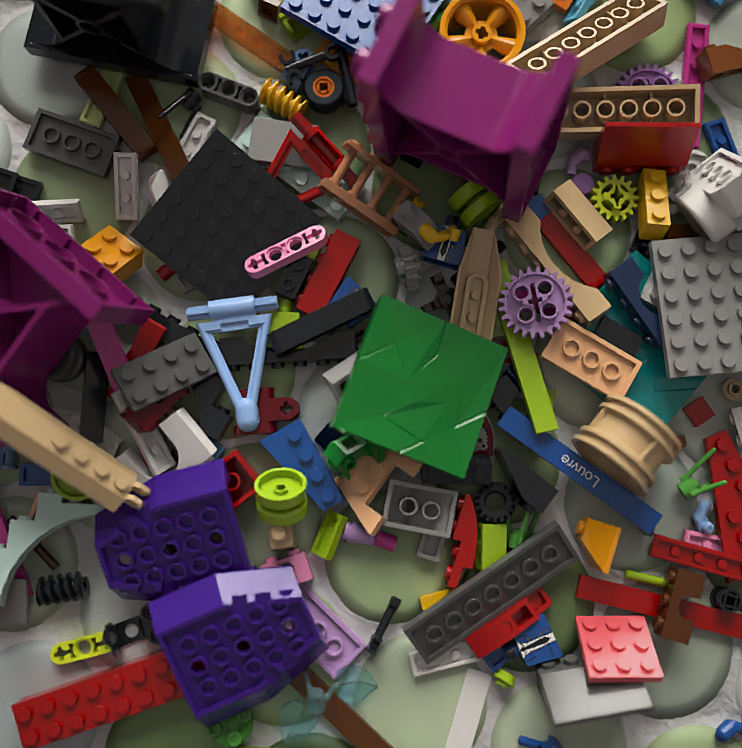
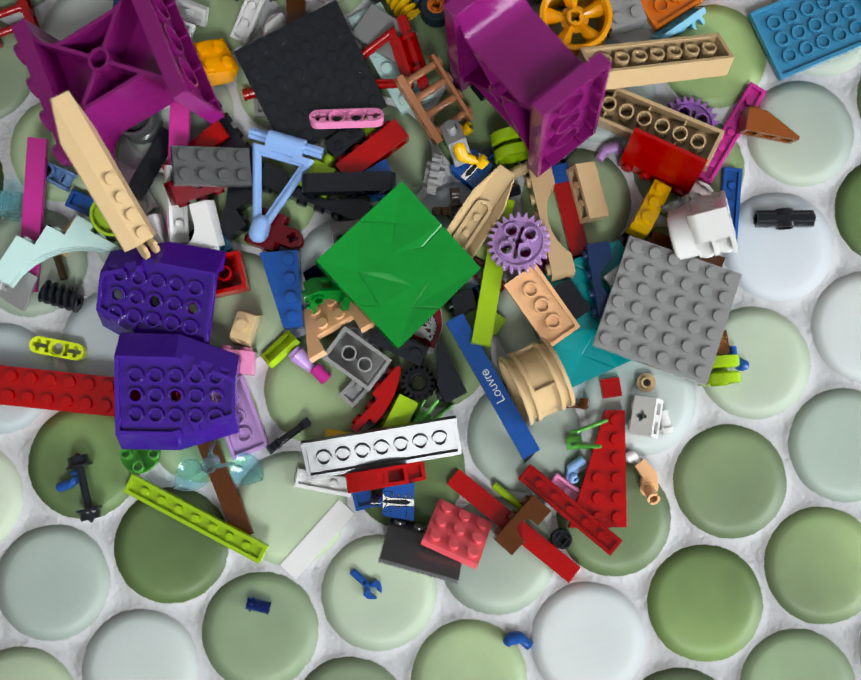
camera: 25 degrees right, 0 degrees up
(117, 638) = (85, 351): black piece -> none
(281, 496) = (255, 300): lime wheel -> none
(504, 679) = (361, 519): lime plate -> none
(583, 182) = (605, 170): medium lavender tile -> none
(597, 542) = (481, 446): light orange slope -> none
(619, 191) = (630, 195): neon yellow gear -> none

